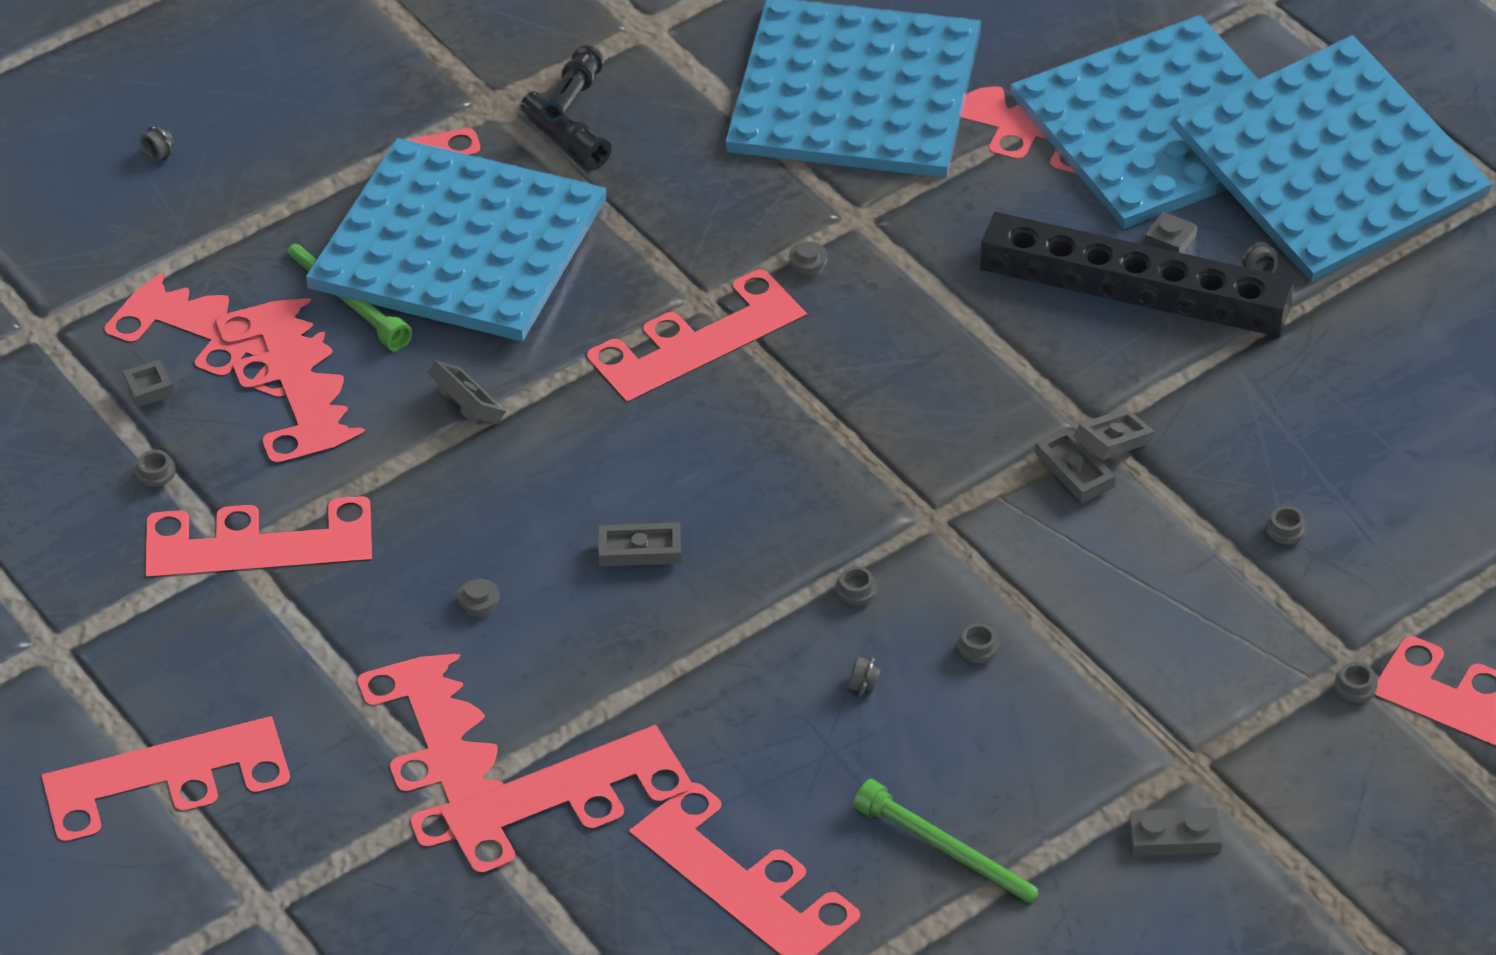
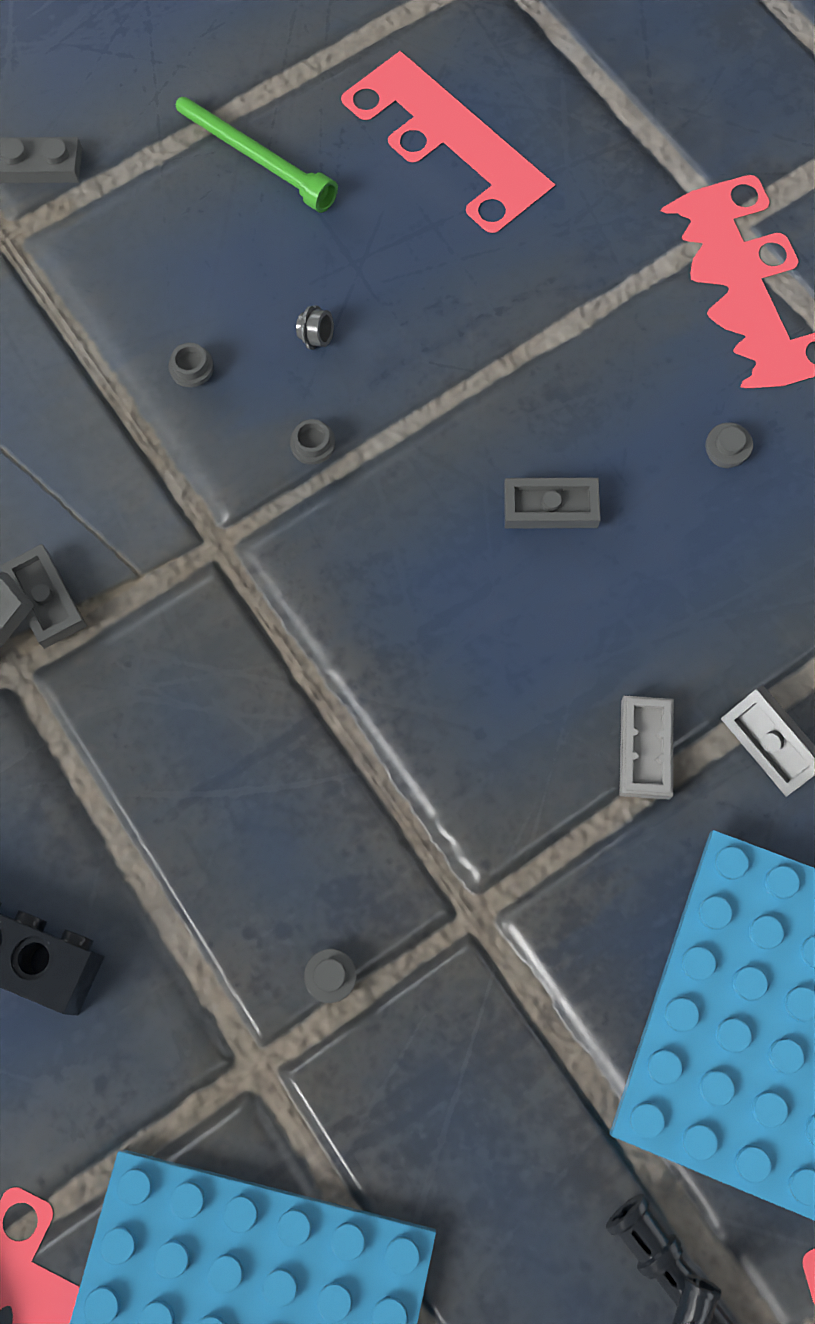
camera: 175 degrees left, 25 degrees up
(567, 388) = (646, 747): none -> light grey plate
(571, 780) = (614, 235): coral piece -> none
(693, 349) = (480, 830): coral piece -> none

